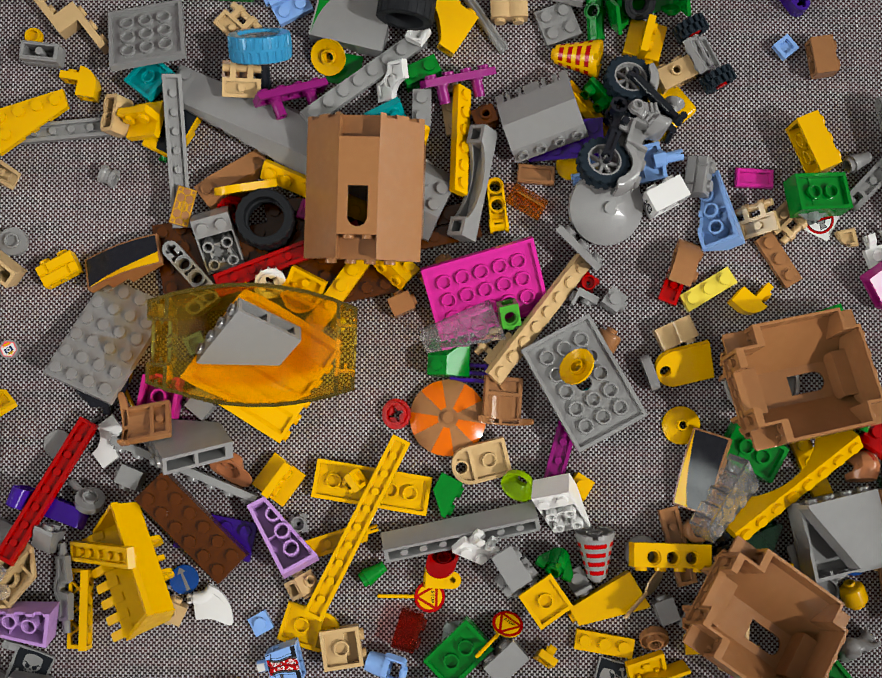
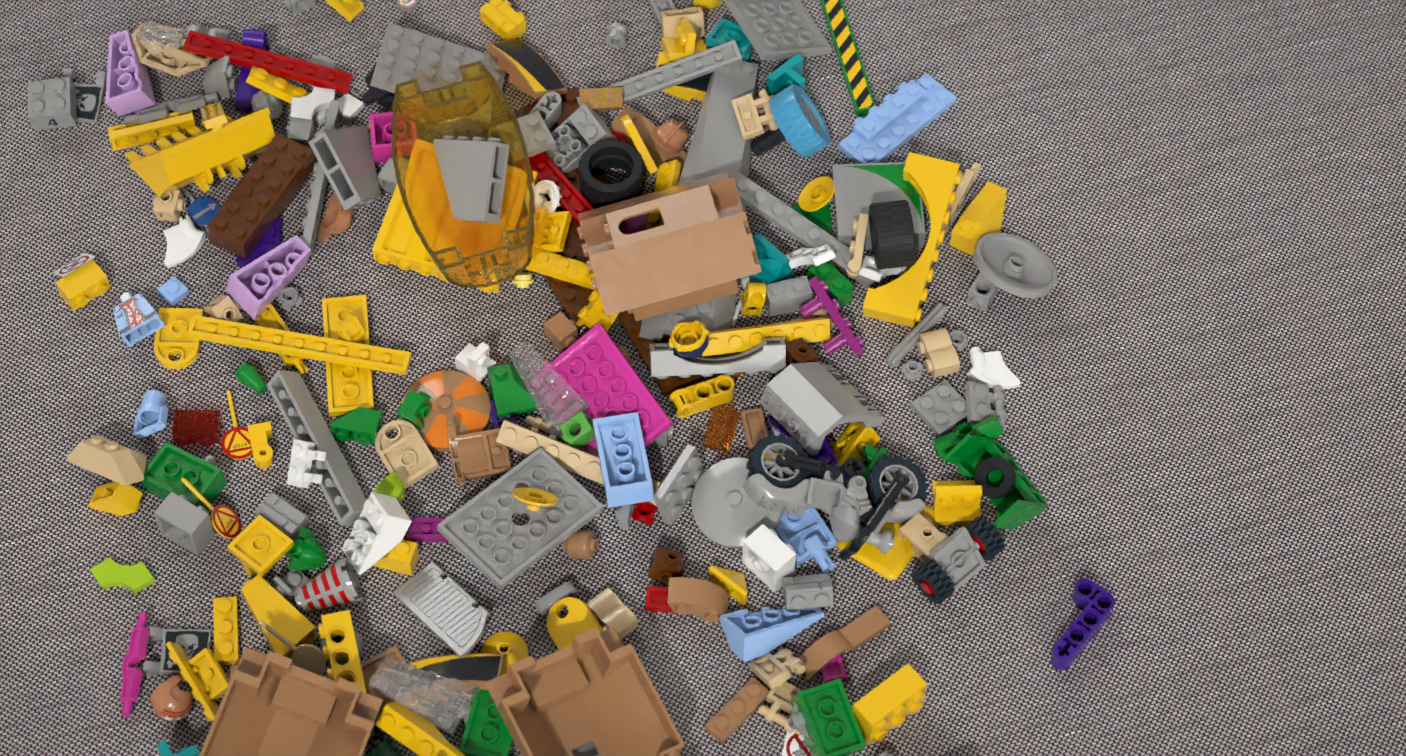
camera: 75 degrees right, 25 degrees down
(76, 487) = (275, 86): none -> yellow plate
(100, 452) = (308, 105): none -> white tile
(144, 421) = (361, 118): medium nougat piece -> none
(204, 273) = (535, 134): none -> light grey plate
(212, 44) = (786, 75): none -> teal bracket
(228, 22) = (823, 96): tan plate -> none
(236, 159) = (671, 136): none -> nougat piece
(278, 479) = (332, 268): yellow bracket -> none
(284, 93) = (756, 156): magenta plate -> none
(342, 647) = (164, 367): tan plate -> none
(389, 409) = (441, 352): red gear -> none
(399, 37) = (857, 246): none -> tan plate
(414, 382) = (474, 361): none -> white brick
(441, 564) = (279, 435): red cap -> none
(450, 443) = (415, 408): none -> green brick
(459, 200) = (689, 339): none -> yellow hair
(511, 567) = (290, 498): light grey brick -> none
(516, 39) = (909, 374): none -> light grey plate
(546, 657) = (198, 572): yellow tile -> none
(551, 285) = (623, 460): none -> light blue slope
(580, 56) = (908, 436): yellow cone -> none
(614, 301) = (629, 539): light grey brick -> none
(635, 463) = (444, 608): none -> light grey piece
(646, 279) = (665, 564): none -> reddish brown brick
(669, 231) = (730, 581): none -> yellow slope
(707, 289) = (677, 641): light yellow plate -> none
(741, 160) = (846, 639): none -> medium nougat piece
(748, 303) = (674, 689): yellow brick -> none
(785, 47) = (1004, 653): light blue plate -> none
(822, 56) = (1005, 693): medium nougat brick -> none

